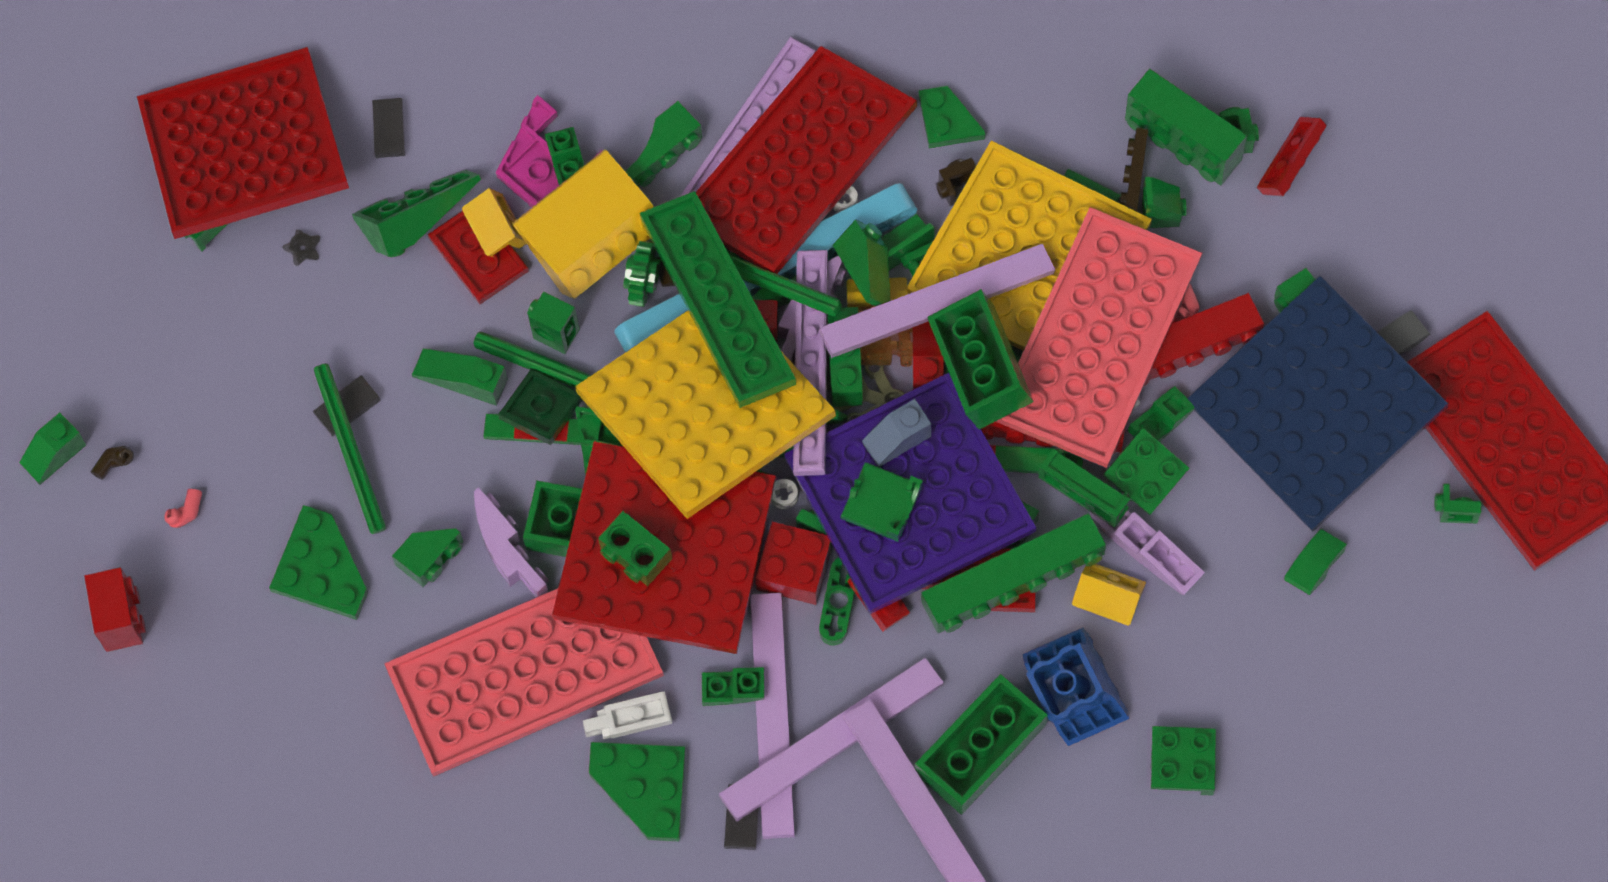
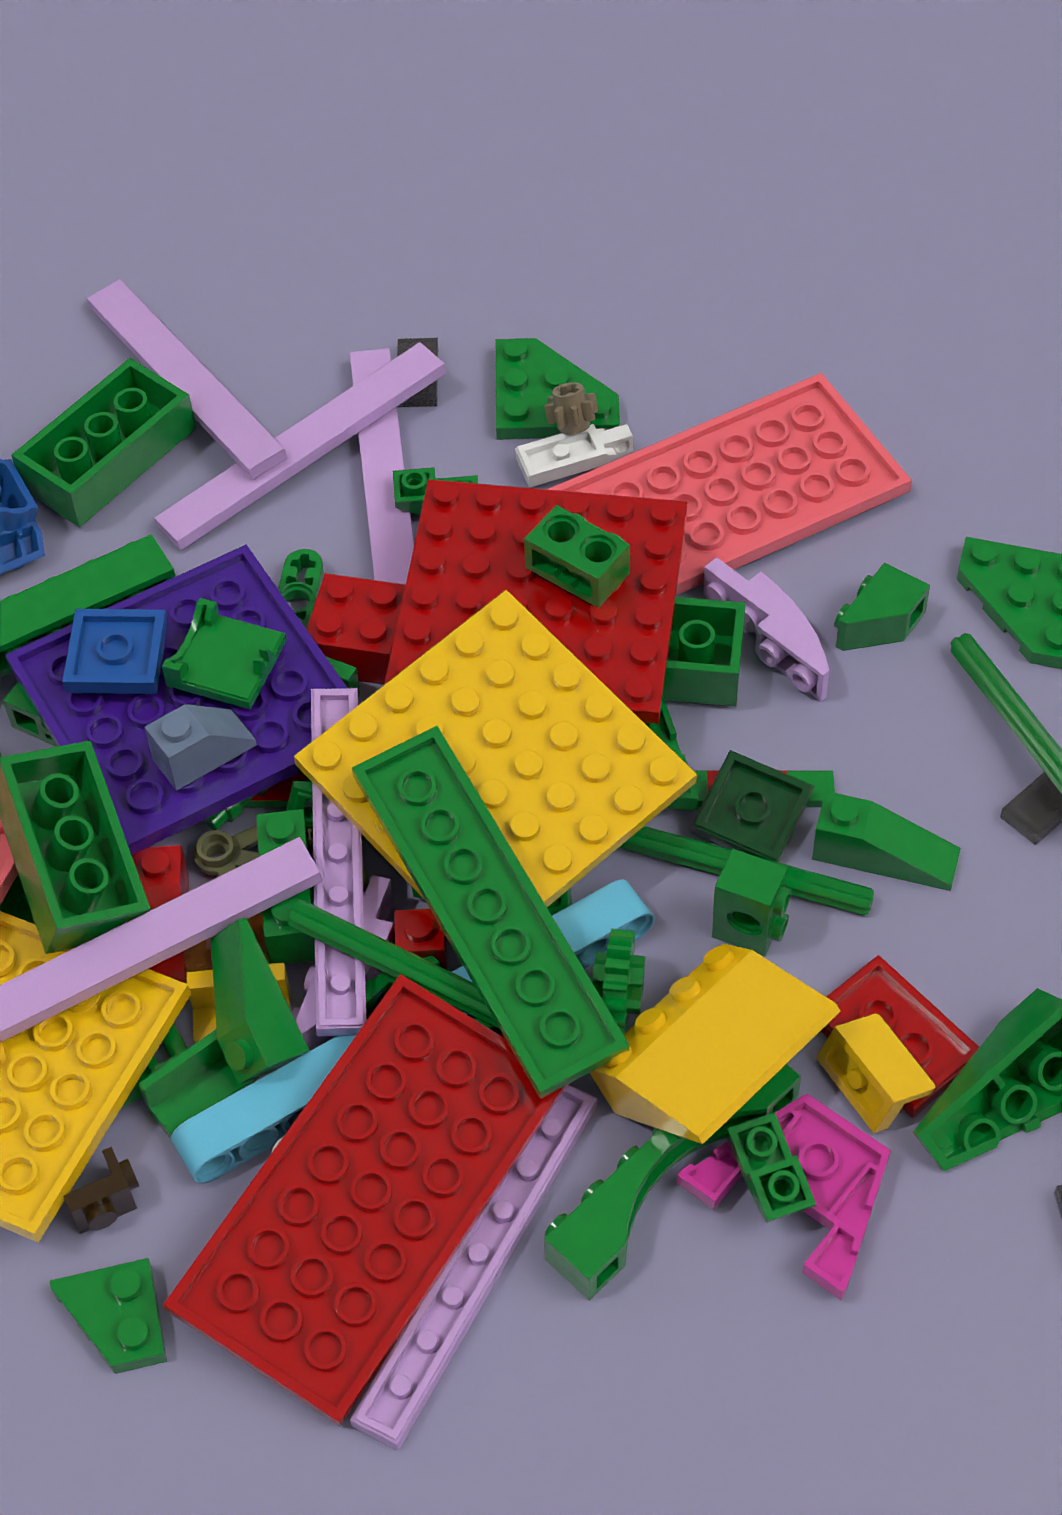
camera: 175 degrees right, 15 degrees down
(625, 728) = (571, 408): none -> dark tan gear
(957, 511) = (115, 651): none -> blue plate

